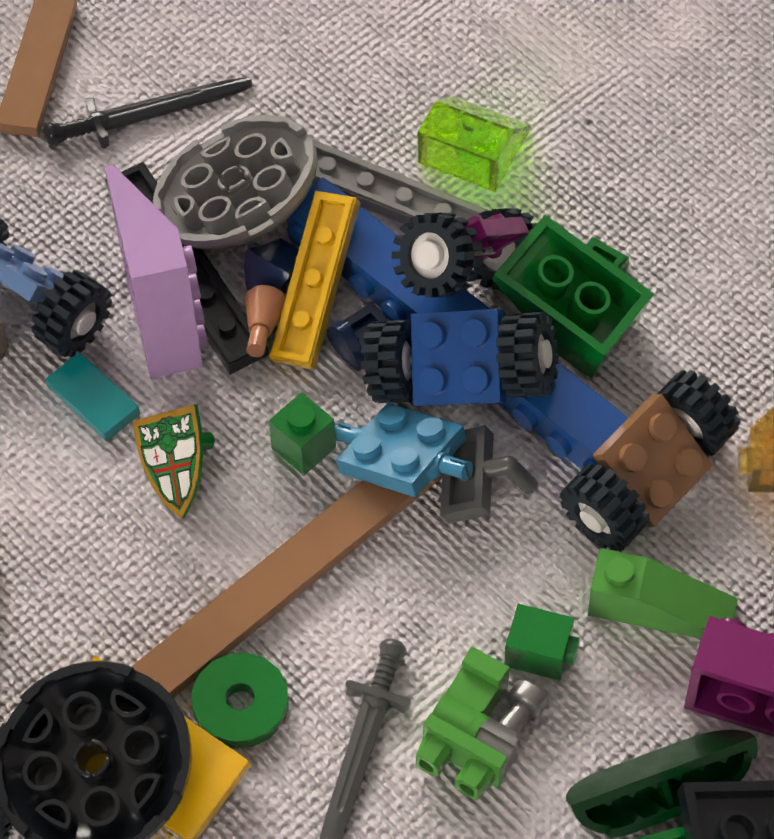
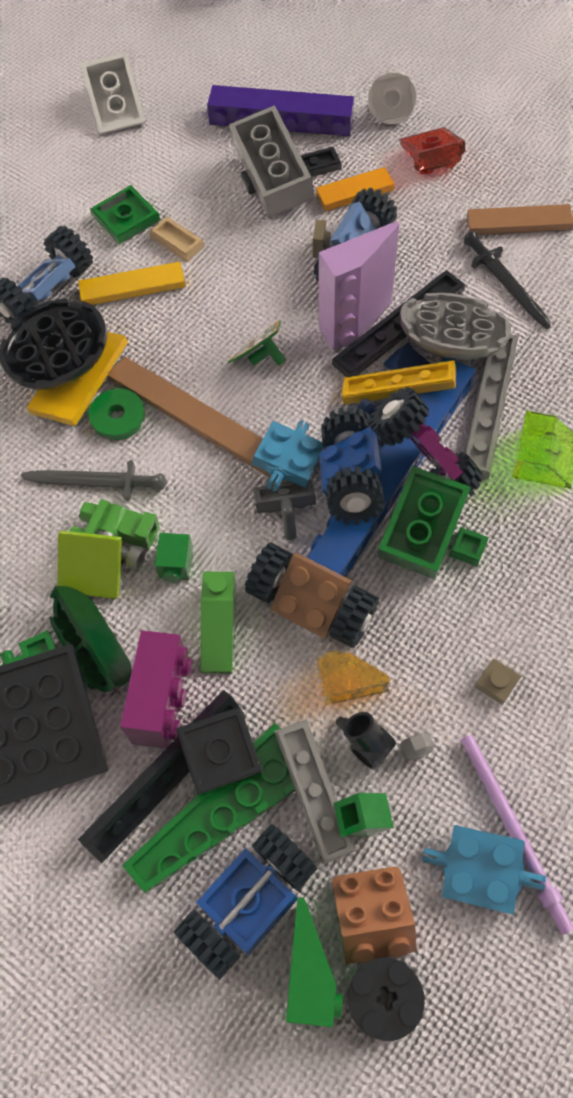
camera: 80 degrees right, 5 degrees up
(92, 396) = (296, 301): teal tile -> none
(263, 314) = (364, 364): nougat cone -> none
(302, 433) = (290, 402): green brick -> none
(533, 760) = (90, 563): none -> lime tile

